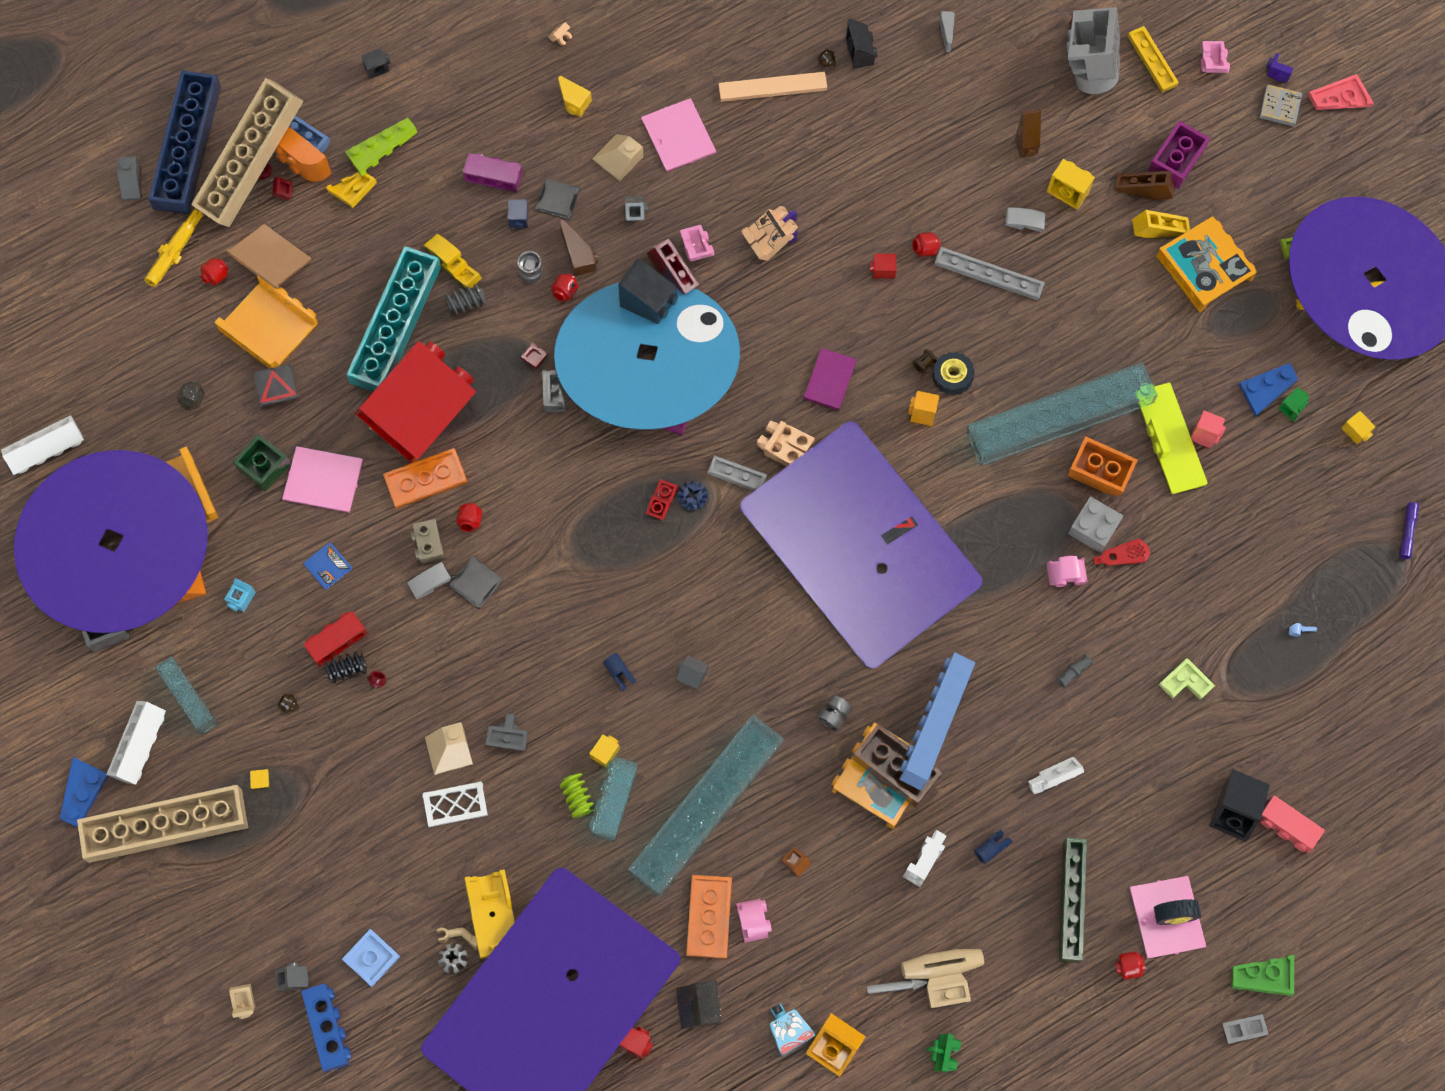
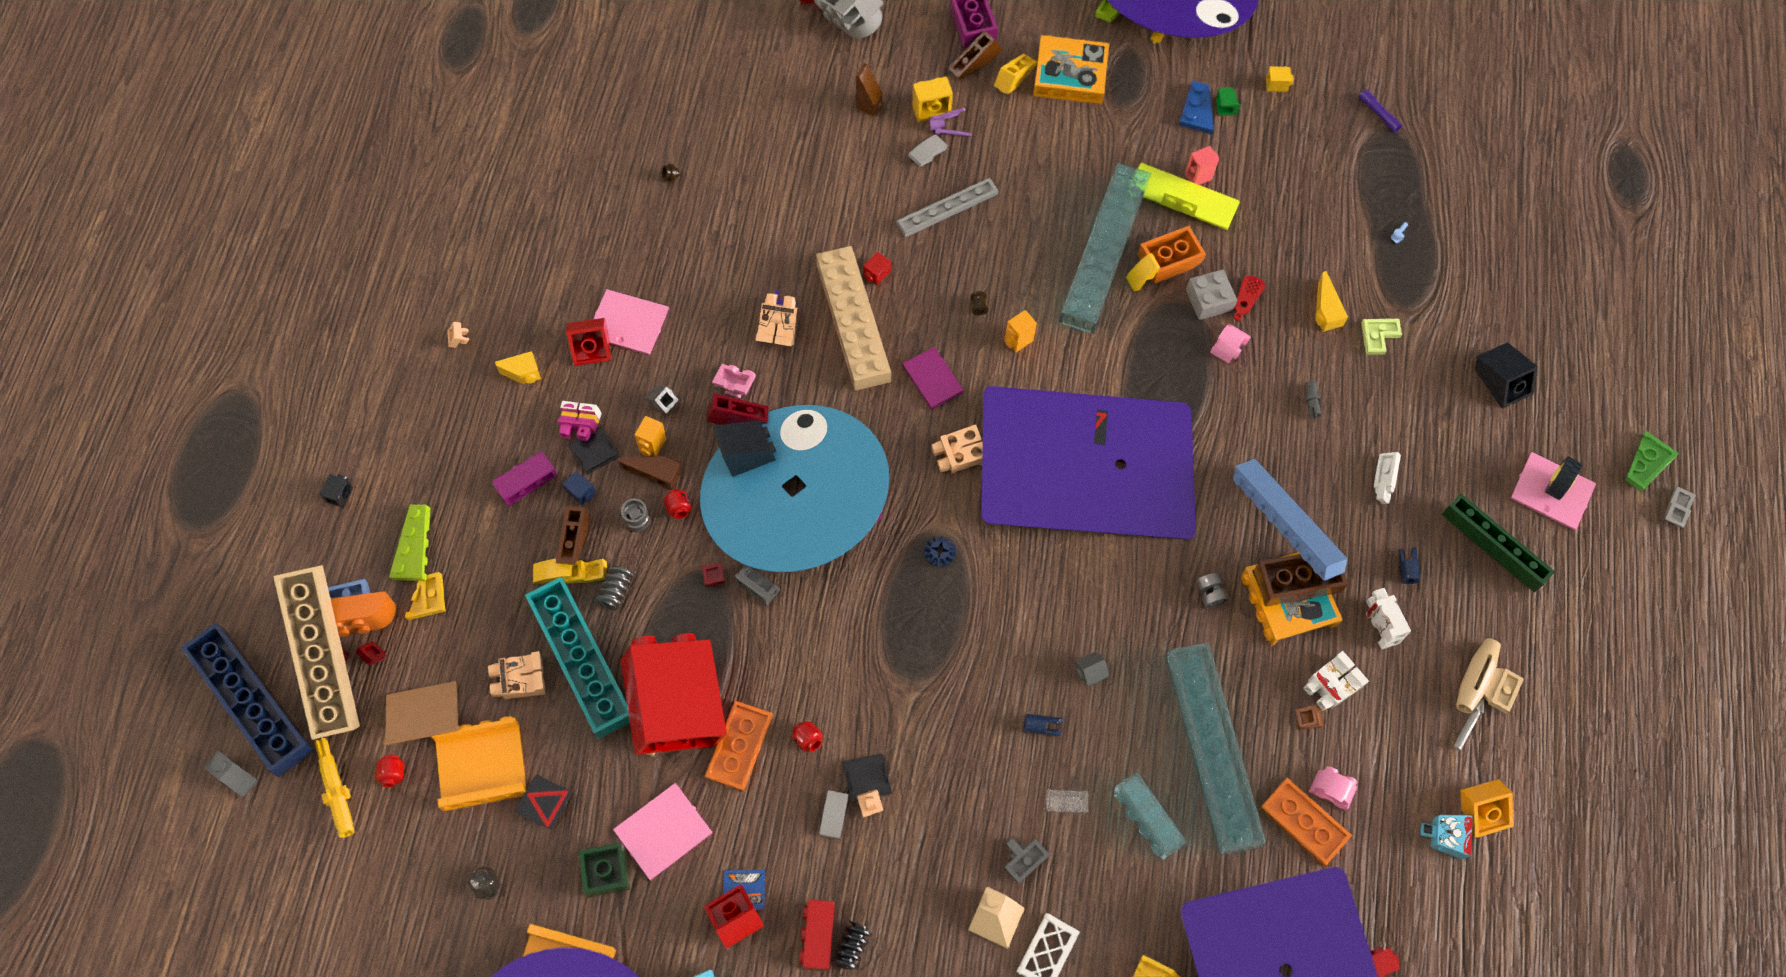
camera: 50 degrees left, 5 degrees down
(301, 572) = (733, 916): none -> red slope
(348, 294) = (518, 676): none -> light nougat hips
(376, 679) = (884, 928): dark red plate -> none
(428, 542) = (799, 787): dark tan brick -> none
(458, 598) = (869, 803): none -> light nougat tile
(478, 239) = (572, 535): none -> reddish brown slope
(571, 168) = (580, 418): none -> dark pink hips
(575, 732) = (1066, 801): none -> clear plate
(576, 796) = (1123, 843): lime piece -> none
(596, 226) = (650, 437): none -> light orange brick
(605, 750) = (1102, 790): yellow brick -> none
(619, 156) = (603, 376): tan slope -> none
(636, 120) = (589, 341): none -> red slope
(662, 499) = (923, 576): red slope -> none
(699, 1005) = (1378, 888): clear smoke slope -> none
(736, 473) = (951, 505): light grey tile -> none
(772, 86) = (654, 227): light nougat tile -> none
(825, 282) = (853, 318): none -> tan brick
(841, 858) = (1329, 686): none -> white hips
(859, 44) = (683, 143): black slope -> none
(926, 244) = (887, 227): red head -> none
(941, 1053) = (1551, 732): green hips -> none
(947, 24) = (727, 78): light grey slope -> none
(953, 384) = (1007, 282): black wheel -> none
(1057, 205) = (937, 123): none -> medium lavender plant
(1064, 458) = (1142, 271): none -> yellow slope
(1130, 965) = (1576, 544): red head -> none
(1169, 624) = (1329, 309): none -> yellow slope
(1291, 824) = (1550, 352): coral brick -> none

